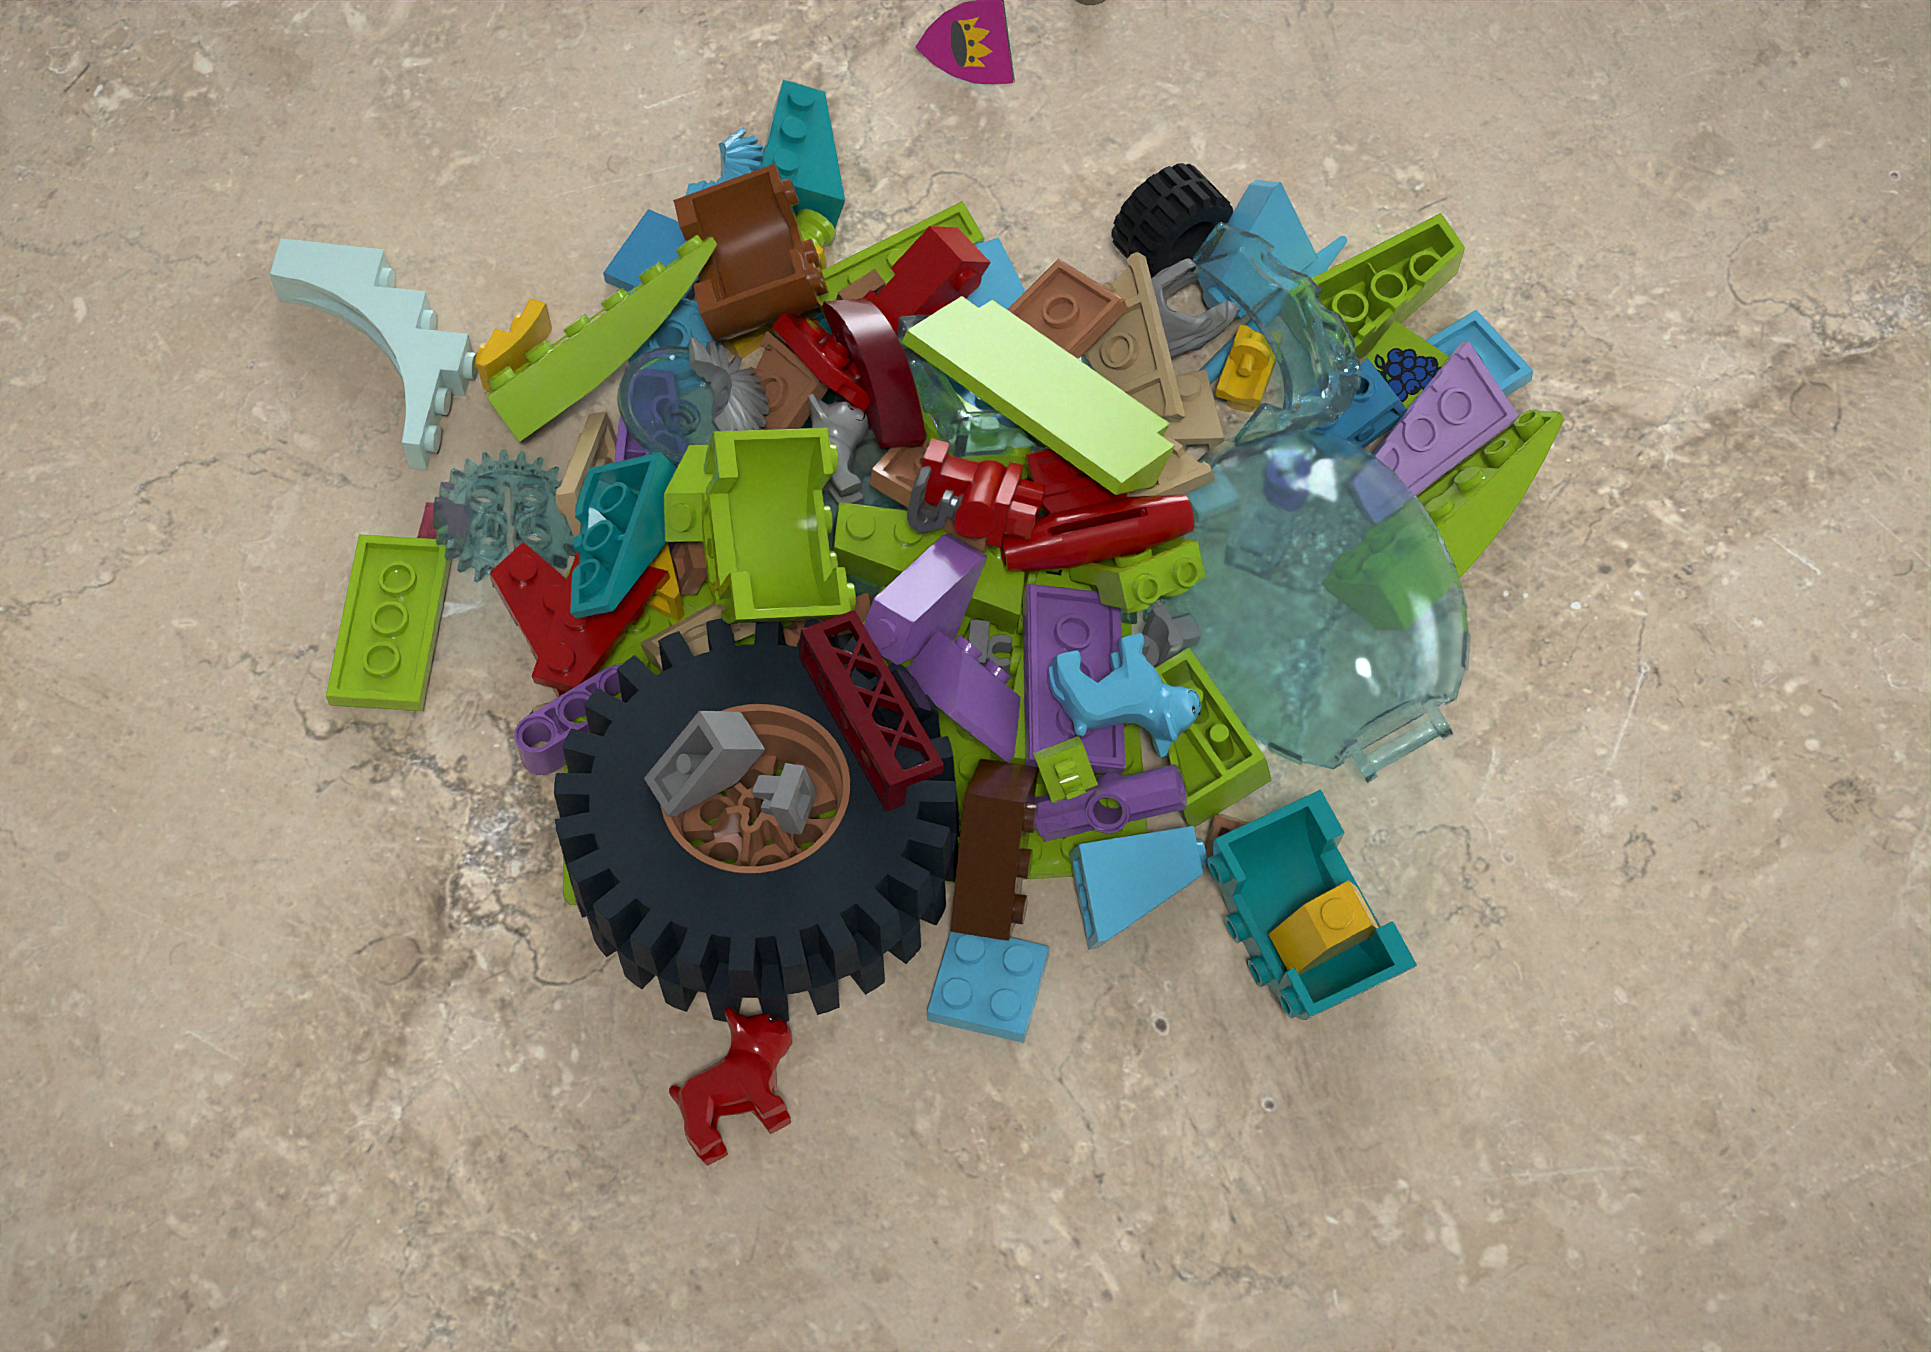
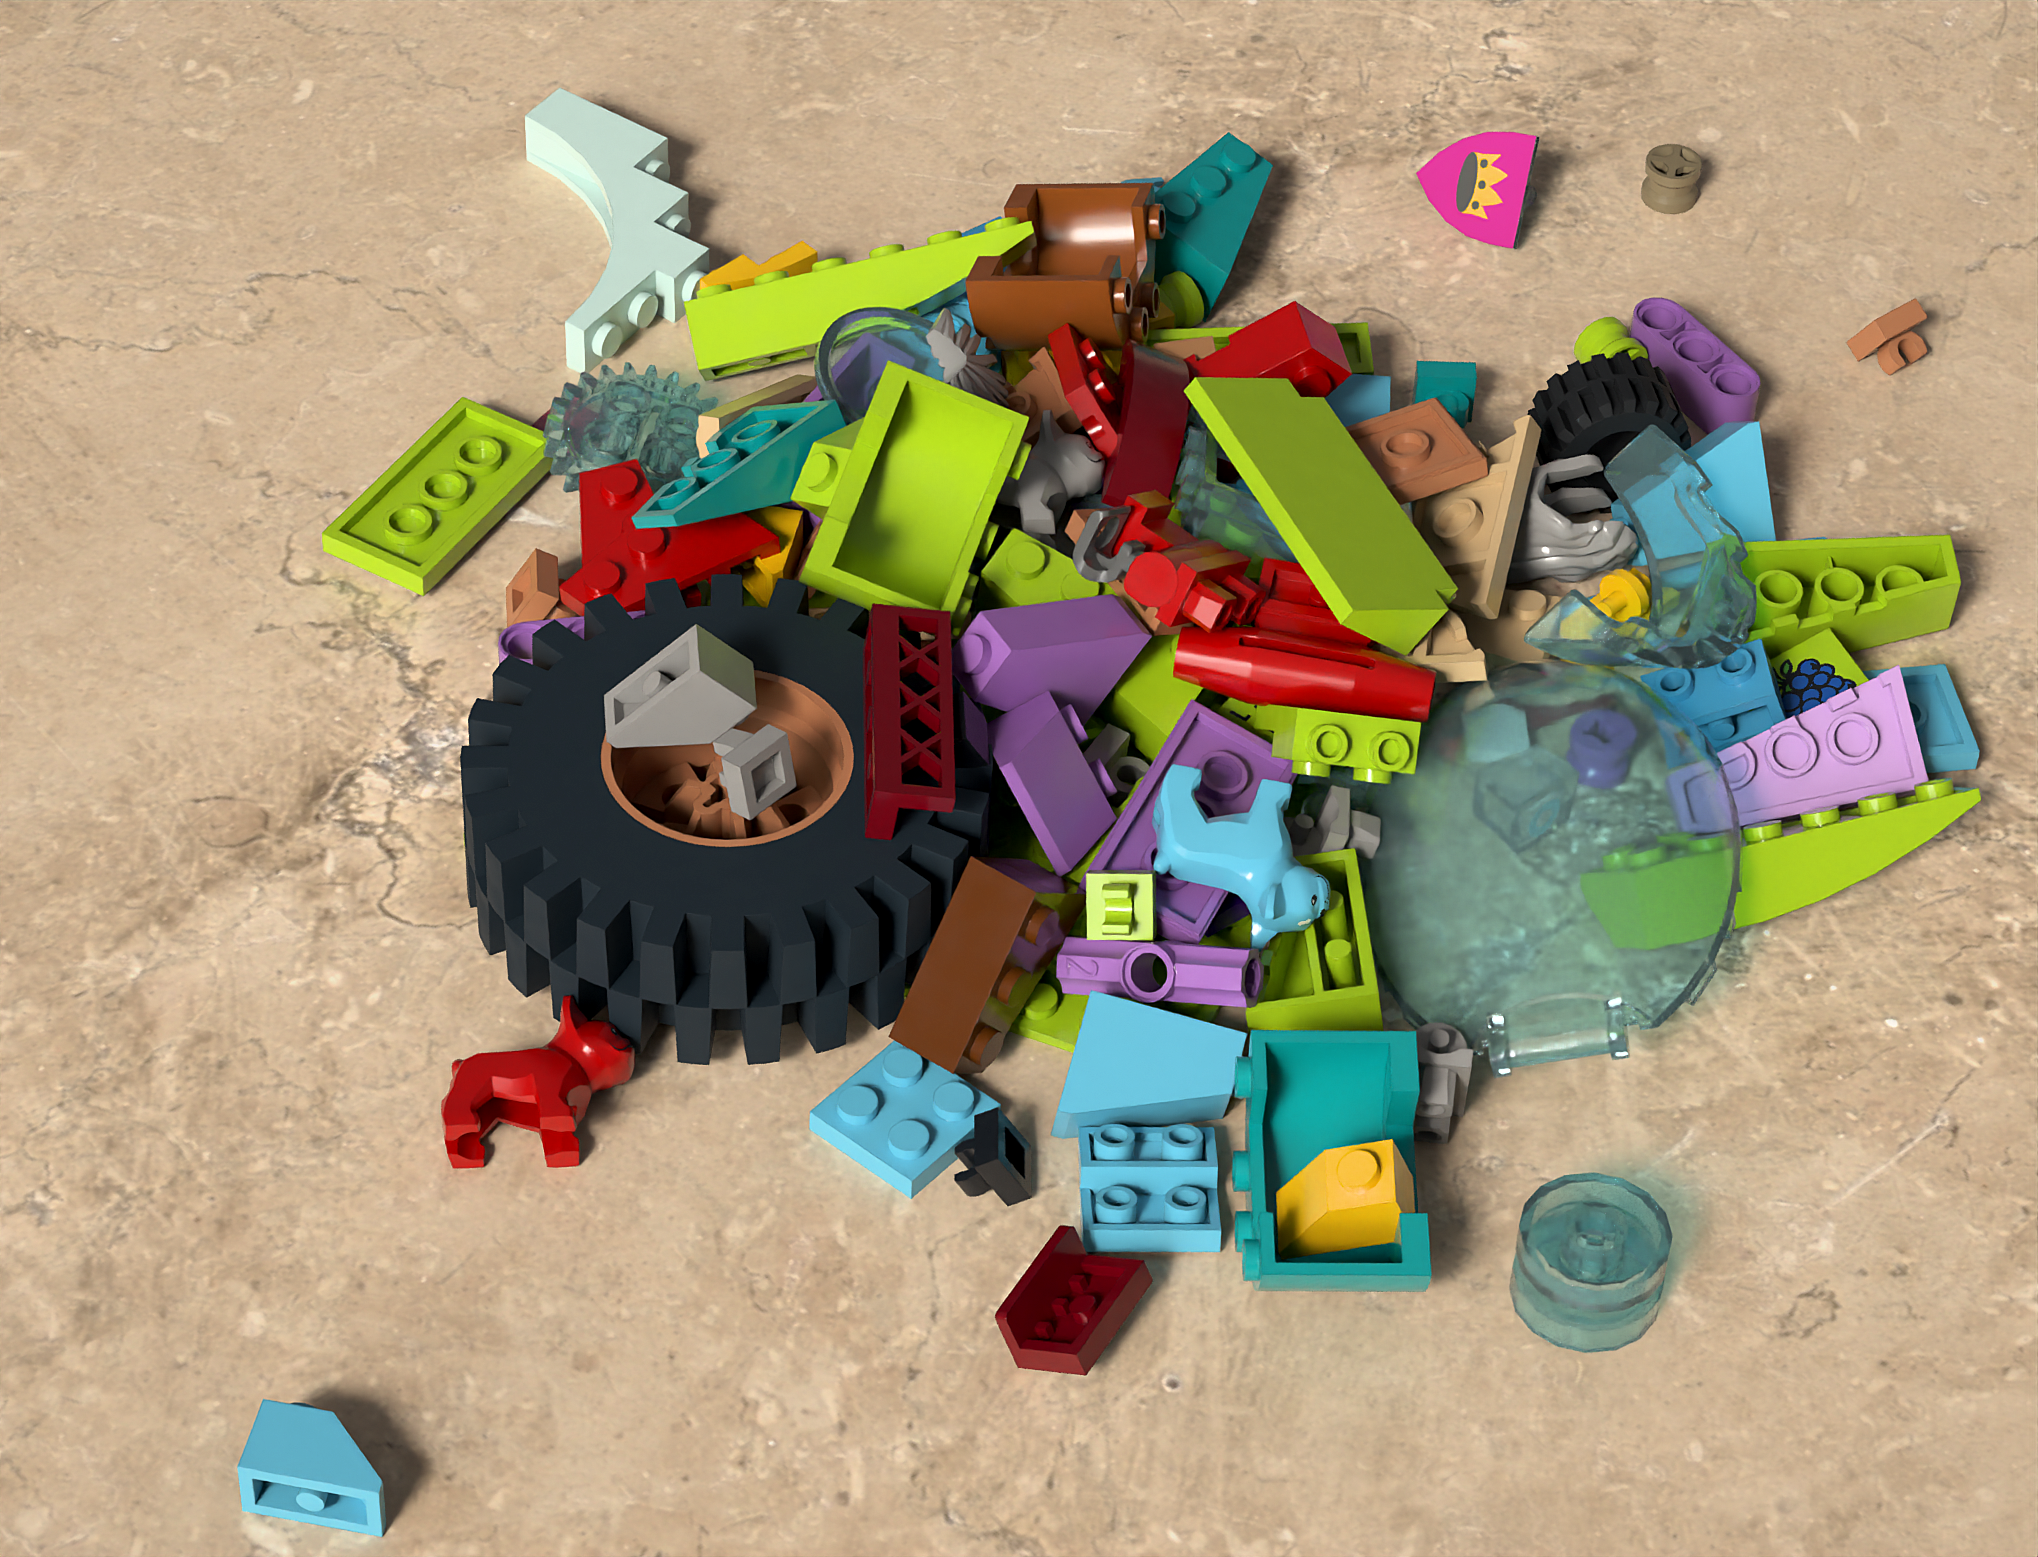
camera: 20 degrees right, 15 degrees down
(505, 678) = (535, 591): none -> nougat tile
(1034, 229) = (1450, 383): none -> teal tile
(1074, 990) = (995, 1159): none -> black tile
(1127, 146) = (1607, 337): none -> lime wheel
(1178, 965) = (1148, 1189): none -> medium azure slope
(1182, 1084) = (1069, 1305): none -> dark red bracket
(1188, 135) = (1703, 372): none -> medium lavender beam
(1301, 48) = (1890, 334): none -> nougat tile
(1325, 775) = (1443, 1080): none -> light grey hips
(1495, 892) = (1590, 1262): none -> clear light blue wheel

